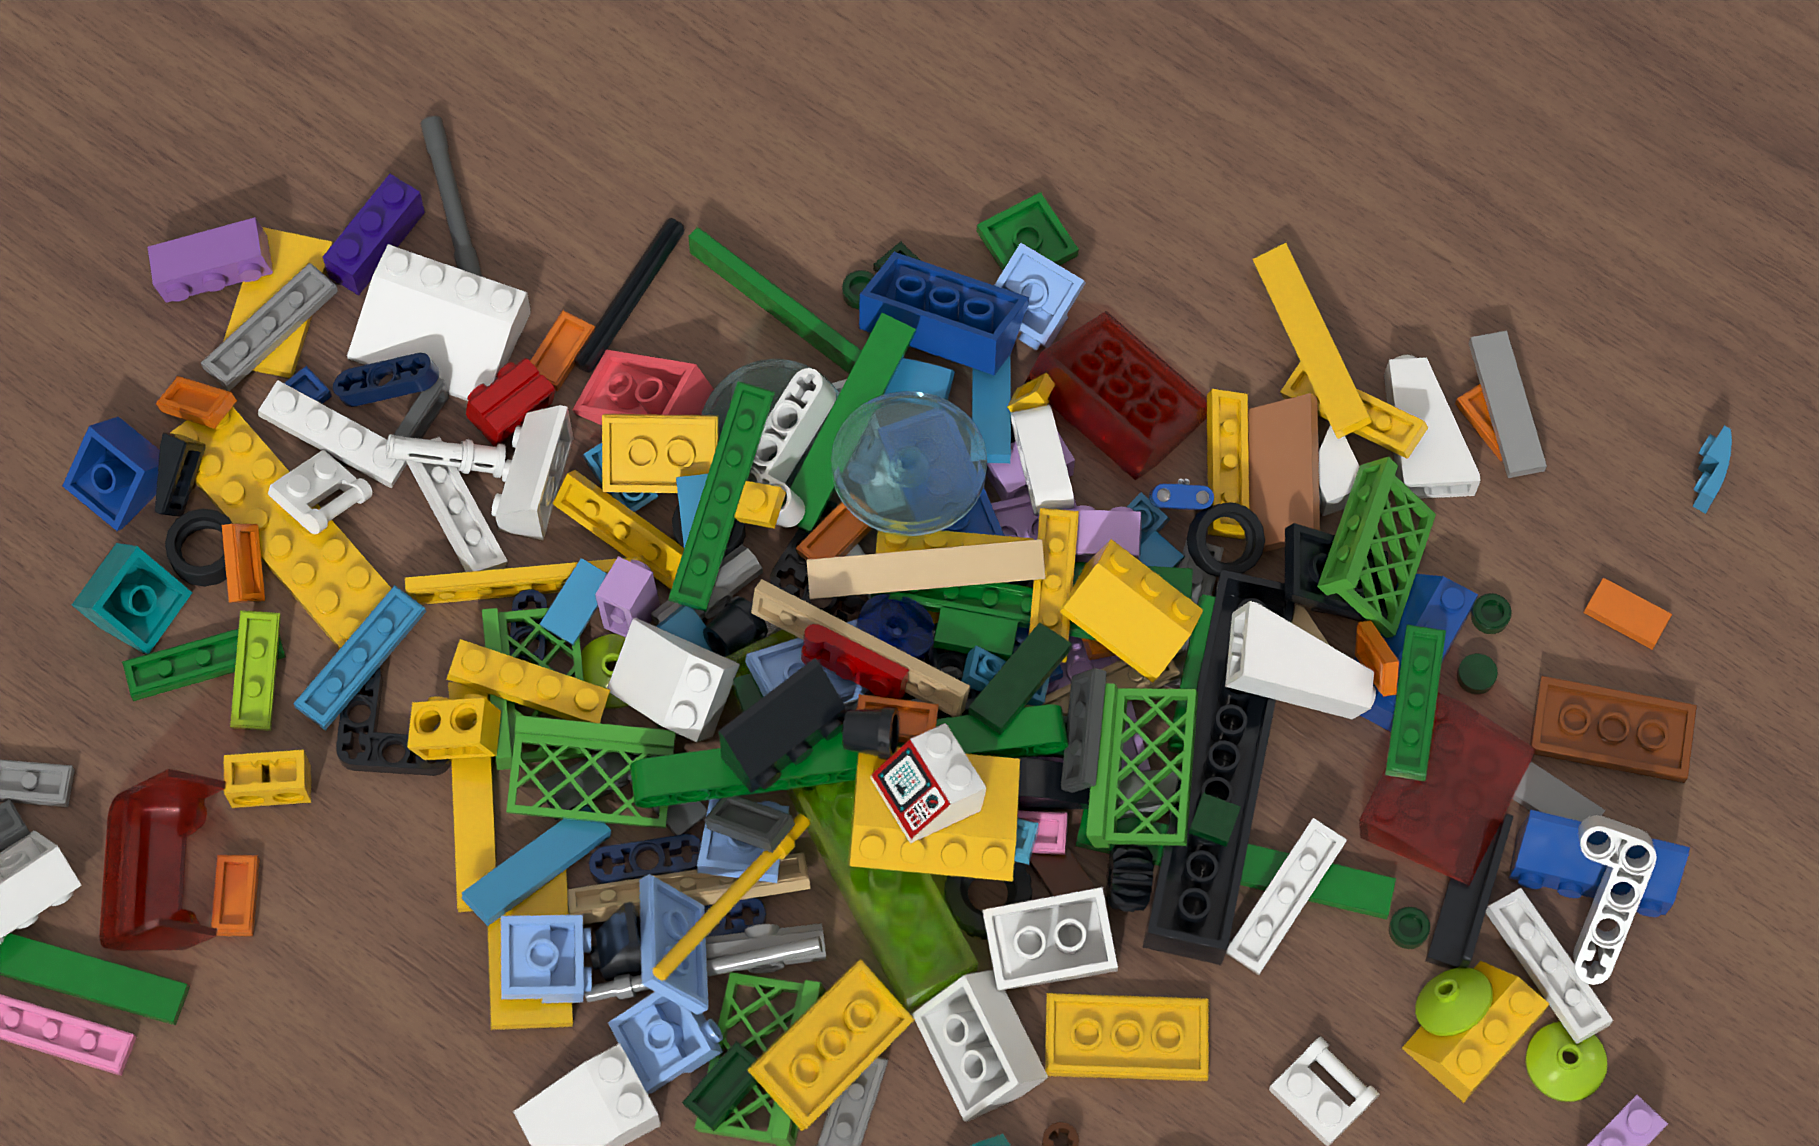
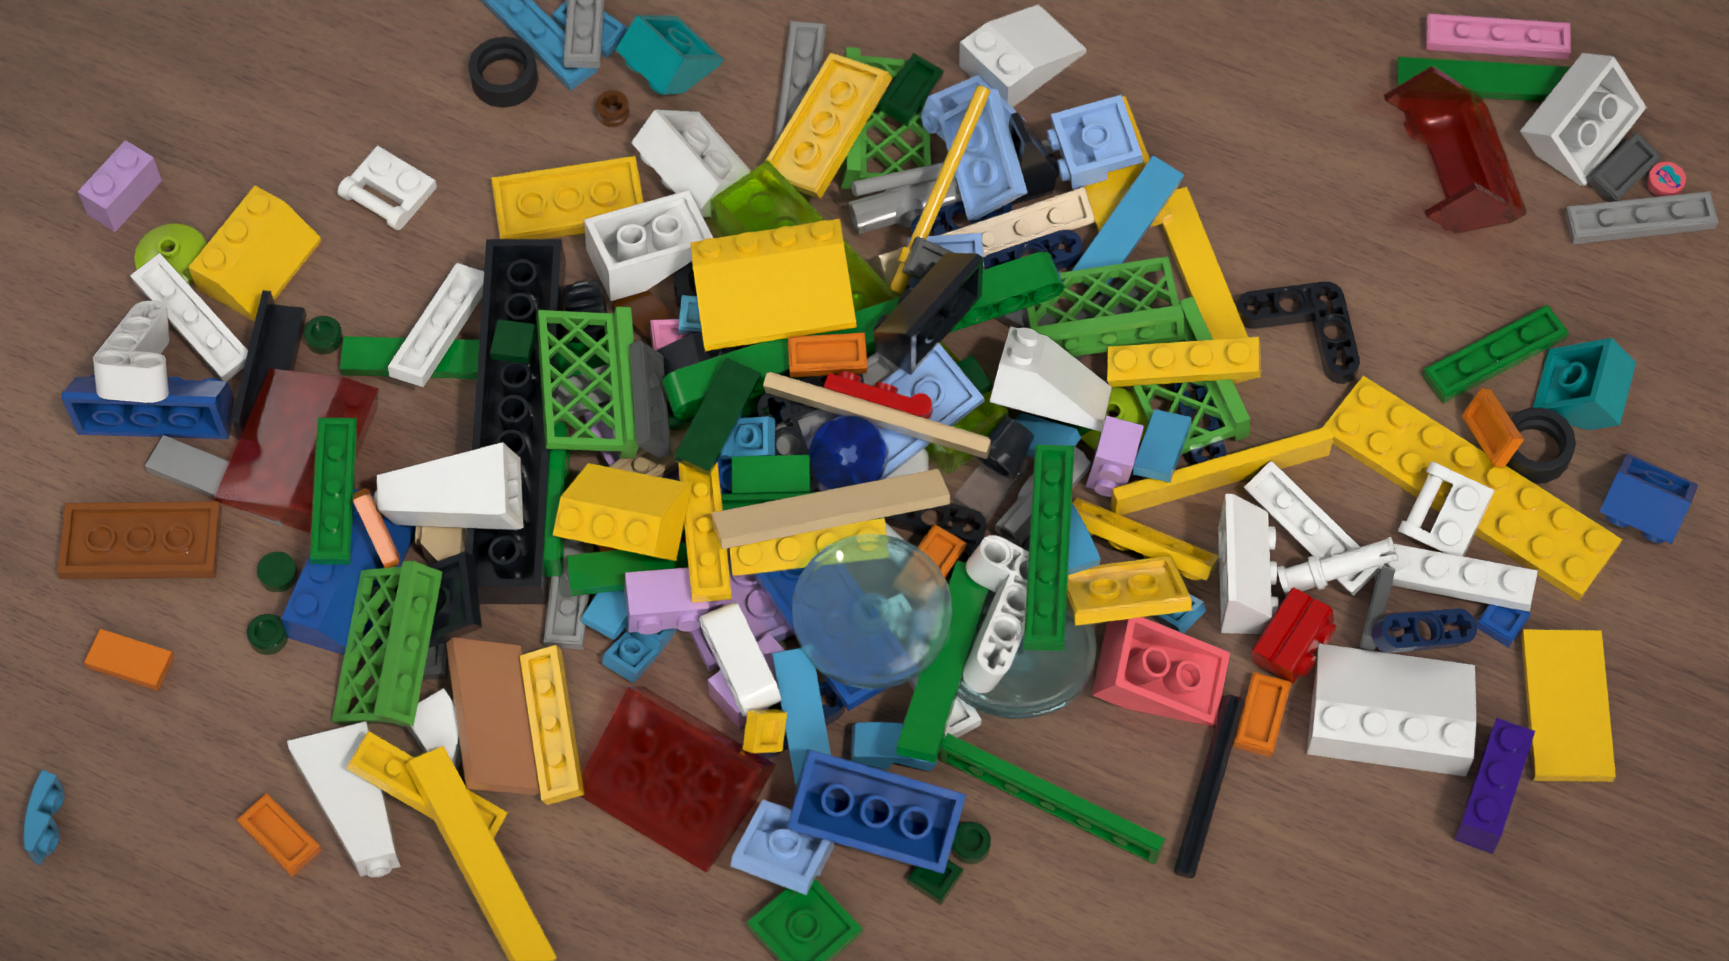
camera: 170 degrees right, 5 degrees down
(176, 472) = (1592, 498): black slope -> none
(196, 402) = (1602, 575): orange tile -> none
(210, 260) = (1649, 717): medium lavender brick -> none
(235, 895) = (1386, 166): orange tile -> none
(255, 670) = (1443, 344): lime tile -> none
(267, 778) = (1393, 246): yellow brick -> none
(269, 327) = (1562, 666): light grey tile -> none
(359, 657) = (1349, 367): dark azure tile -> none
(438, 147) = (1464, 904): dark grey piece -> none
(453, 736) = (1238, 305): yellow brick -> none
(760, 504) = (1009, 539): yellow plate -> none
(872, 731) = (844, 316): black piece -> none
(929, 784) = (780, 282): white slope -> none
(1181, 496) = (592, 658): blue piece -> none
(1253, 534) = (550, 646): black tyre -> none
(1454, 1001) = (261, 268): lime dish -> none
(1507, 404) = (265, 841): light grey tile -> none

